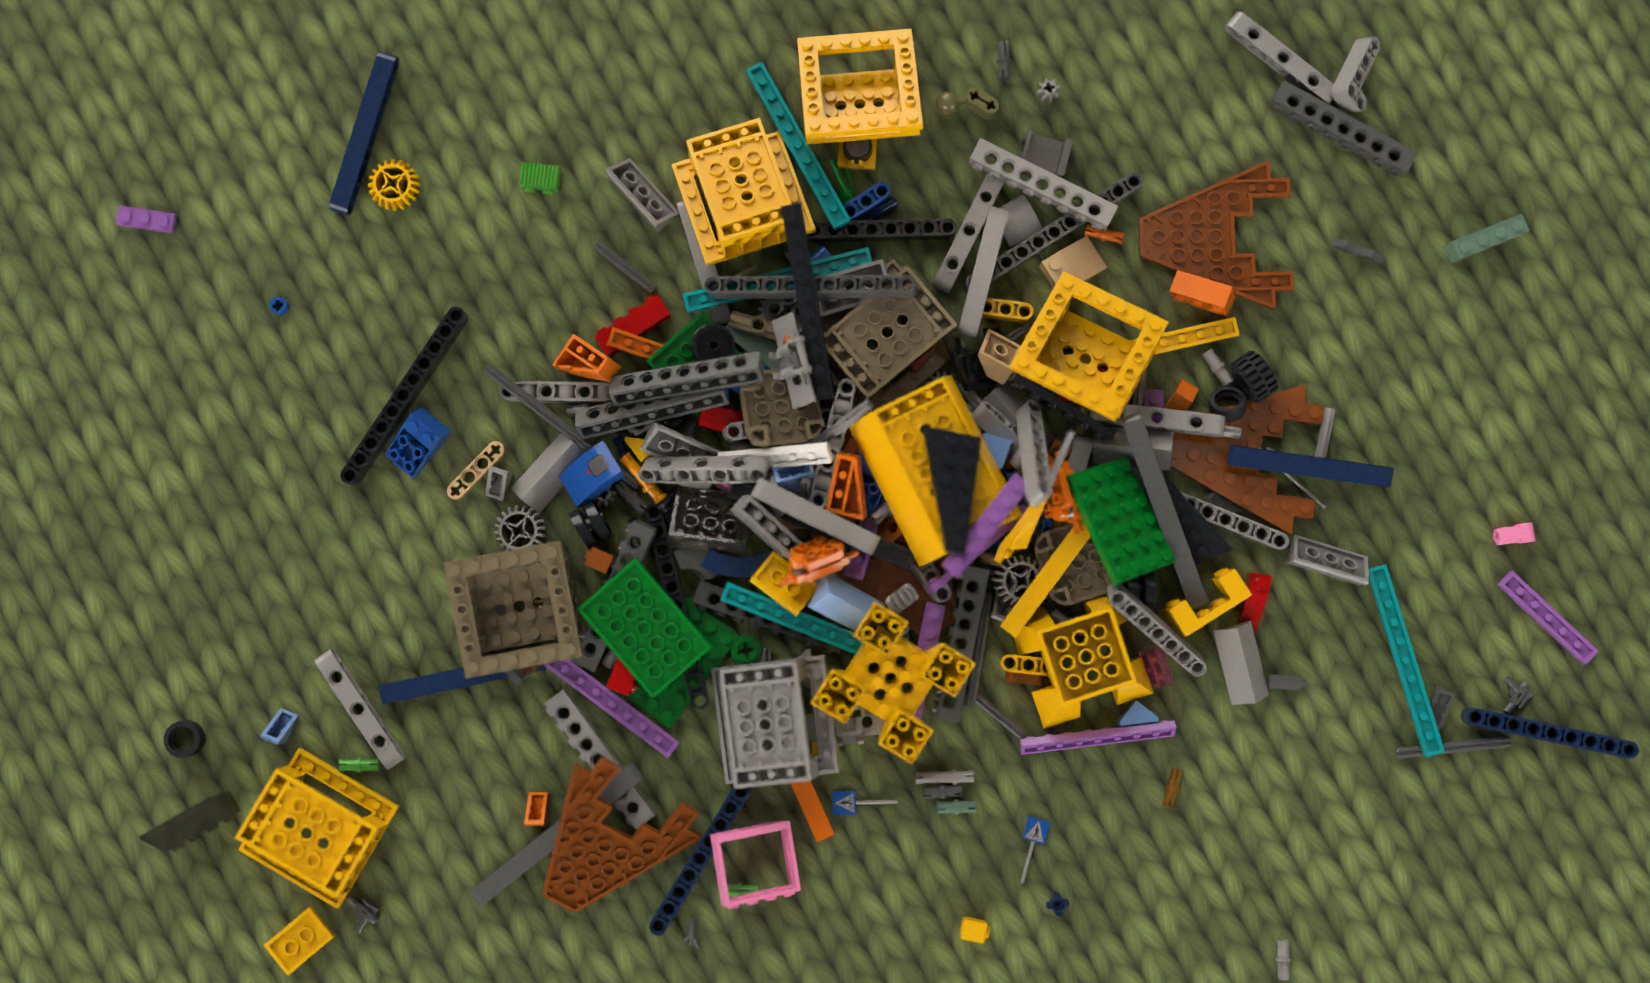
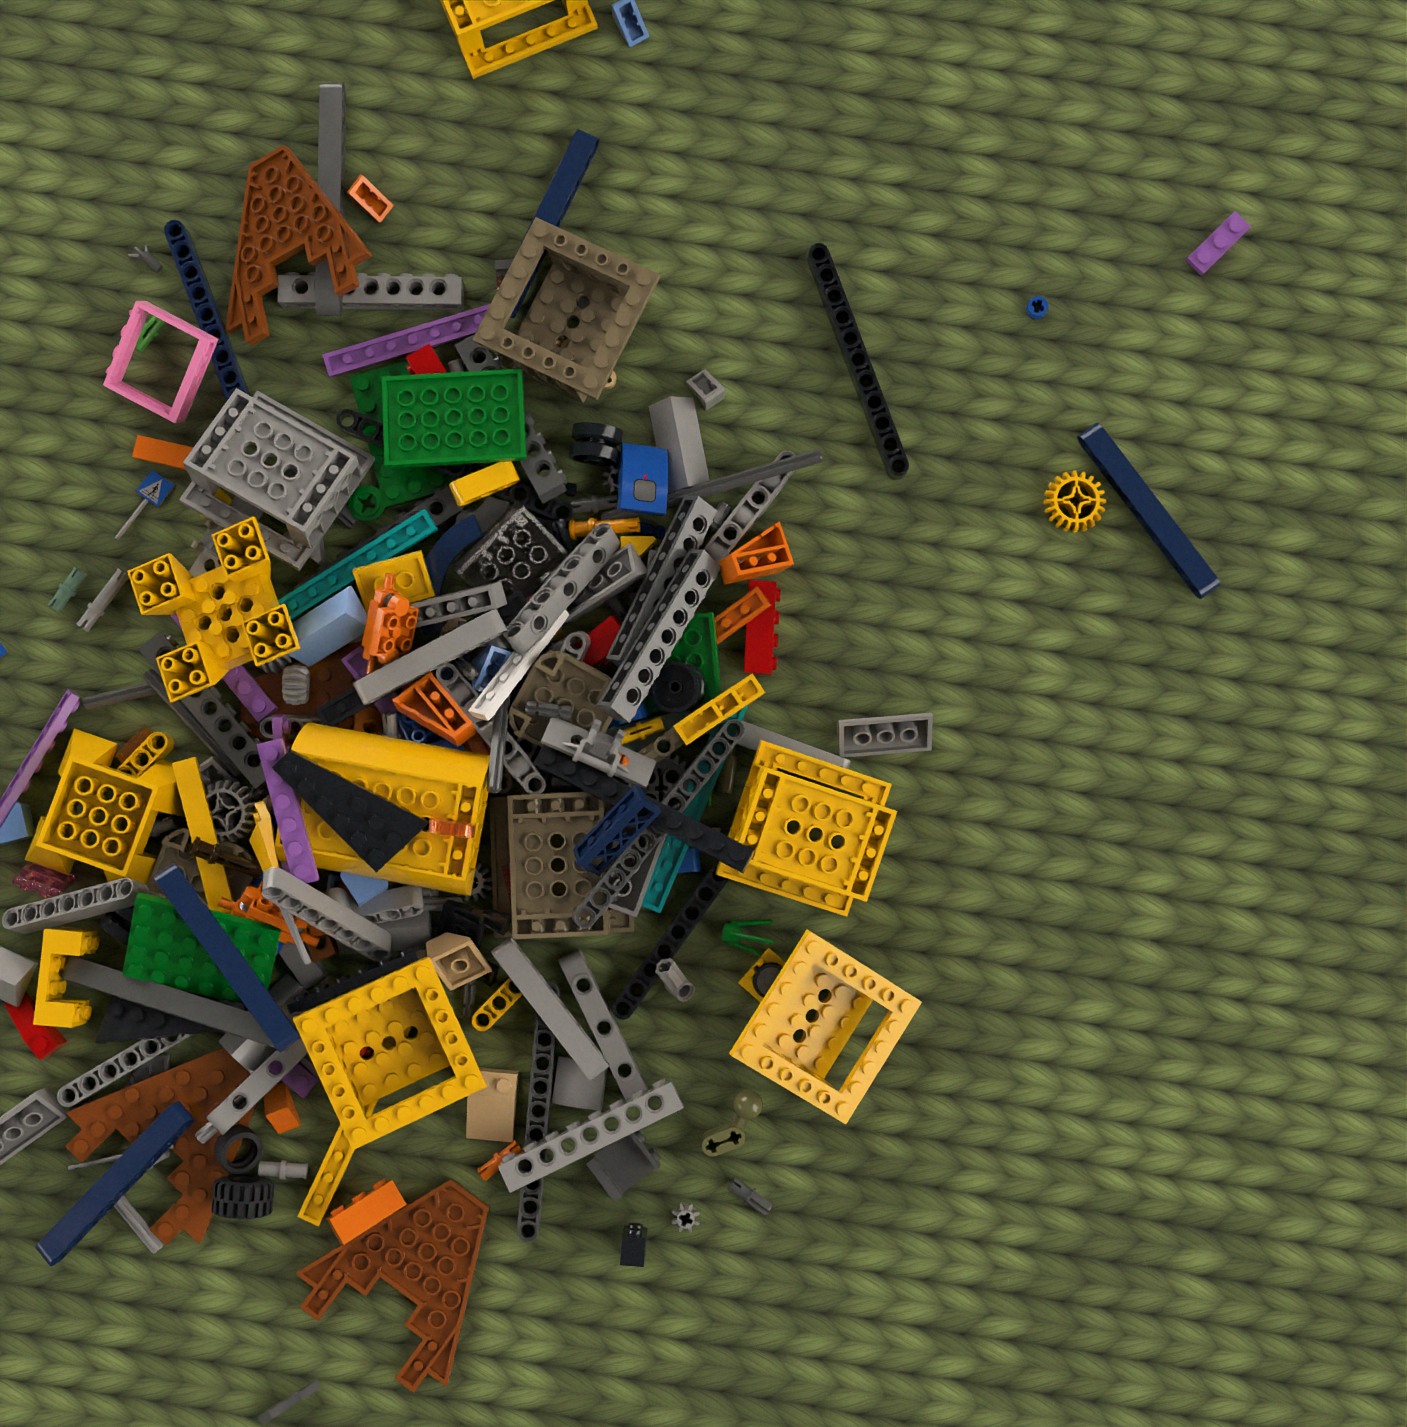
camera: 125 degrees right, 0 degrees up
(359, 765) = (539, 68): bright green pin -> none
(369, 721) = (571, 104): light grey beam -> none
(417, 442) = (804, 342): blue slope -> none
(474, 468) = (734, 377): tan beam -> none
(523, 523) = (652, 370): light grey gear -> none
(540, 177) = (975, 647): bright green brick -> none
(599, 560) = (555, 428): dark orange brick -> none
(625, 267) = (825, 664): dark grey axle -> none
(673, 575) = (484, 482): none -> yellow beam
(706, 306) = (719, 709): none -> yellow slope
(748, 342) = (655, 724): none -> yellow pin
(791, 414) = (548, 710): none -> dark grey axle
(797, 146) = (817, 921): teal plate -> none
(836, 310) = (610, 830): none -> dark blue fence
(870, 194) = (706, 958): blue beam -> none
(881, 209) = (692, 957): dark blue axle -> none
(904, 208) = (674, 980): none -> light grey piece
(914, 408) = (451, 827): none -> clear orange beam
(942, 791) = (91, 587): dark grey pin -> none
(1051, 560) = (214, 854): none -> dark brown pin
(1090, 107) = (633, 1245): none -> black brick
(1109, 493) = (227, 957): none -> dark blue beam

